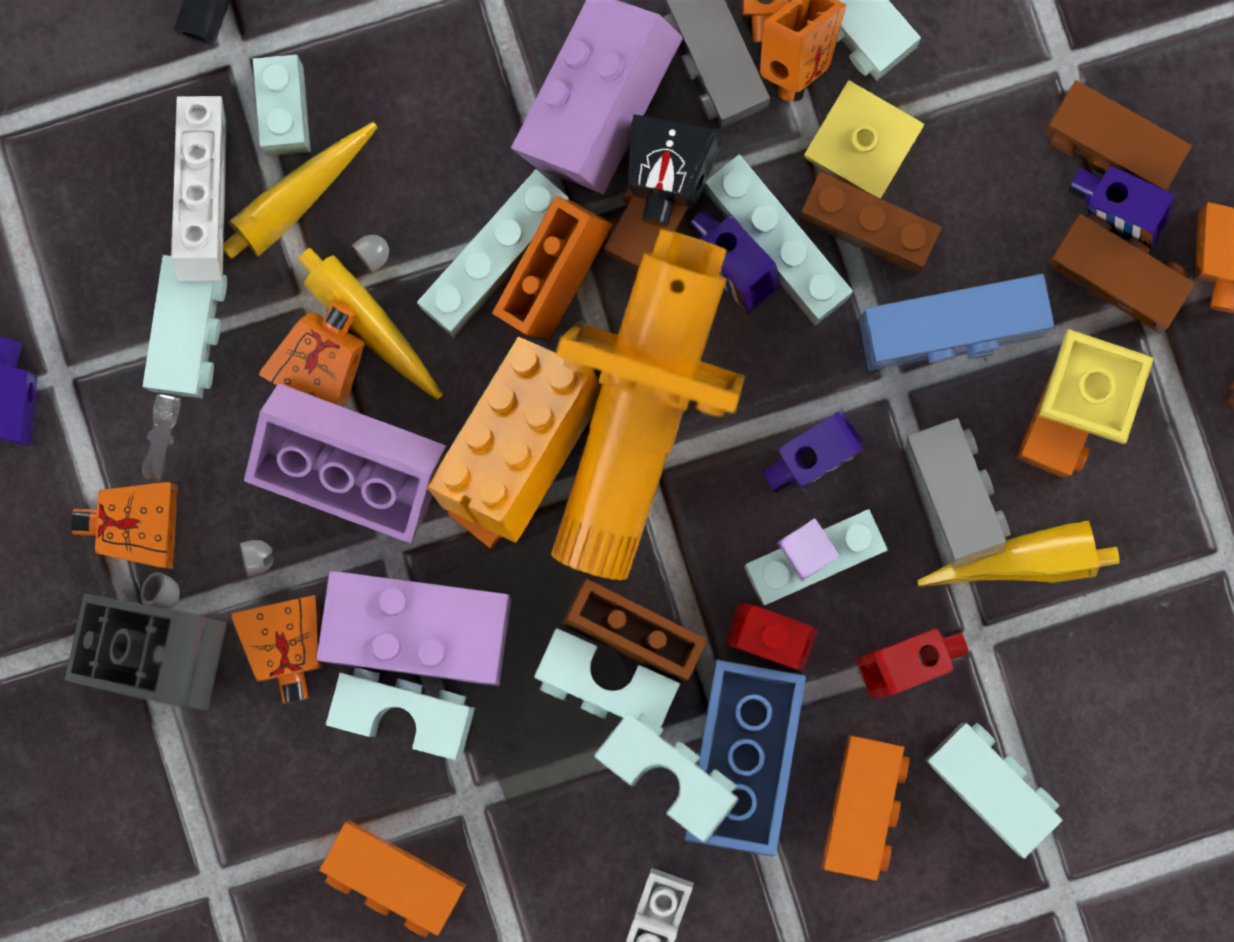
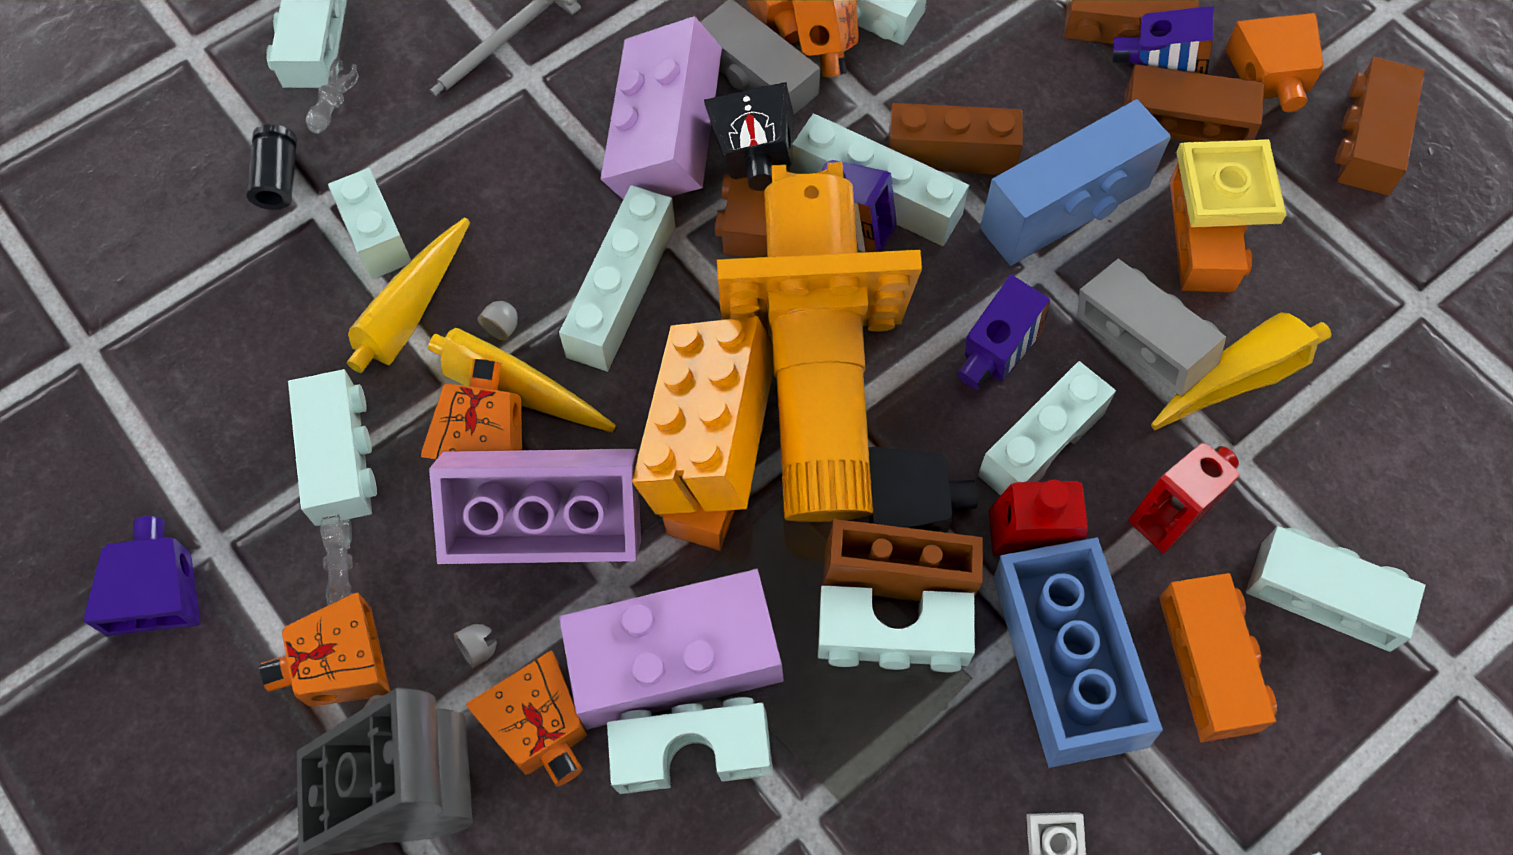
camera: 25 degrees left, 20 degrees down
(199, 188) = (307, 310): white brick -> none
(552, 268) = (679, 259): orange brick -> none
(638, 748) = (1057, 687): light aqua arch -> none
(673, 569) = (915, 490): none -> black torso
(808, 549) = (1041, 412): slope -> none
(863, 140) = (912, 78): light yellow plate -> none

